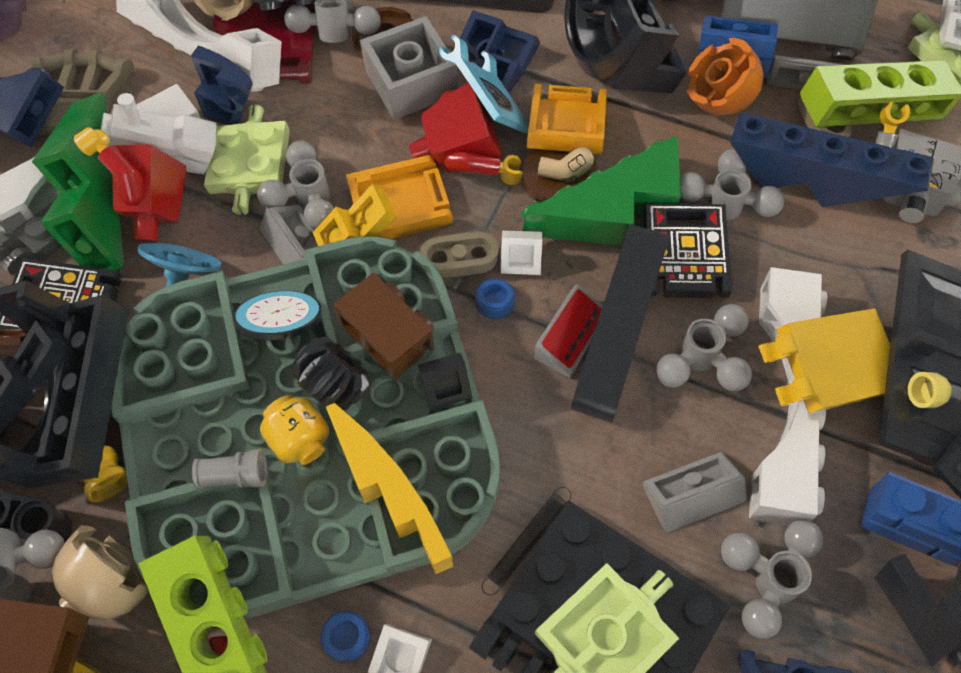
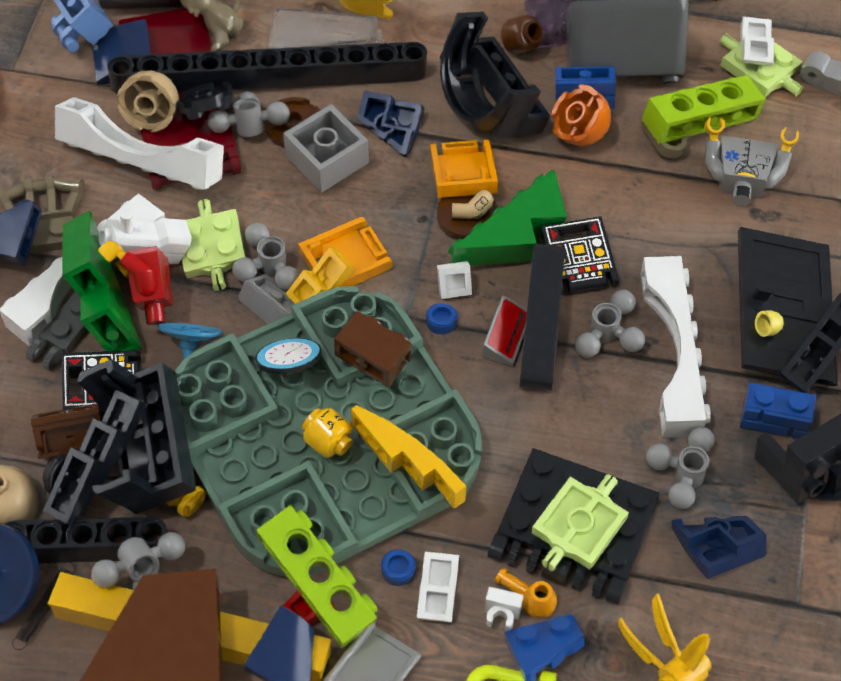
camera: 15 degrees left, 5 degrees down
(97, 576) = (217, 553): tan cylinder -> none
(222, 86) = (179, 190): dark blue slope -> none
(243, 469) = (300, 465): light grey pin -> none
(330, 373) = (342, 388): black gear -> none
(445, 381) = (426, 379): black tile -> none
(460, 252) = (405, 287): dark tan plate -> none
(464, 138) = (386, 197): red torso -> none
(487, 86) = (395, 153): medium azure flag -> none
(529, 545) = (505, 478): black piece -> none
(695, 491) = (621, 426): light grey slope -> none
(732, 189) = (604, 202): light grey piece -> none
(792, 72) = (634, 101): light grey slope -> none
(830, 164) = (676, 173): dark blue slope -> none
(832, 359) = (699, 314): yellow tile -> none

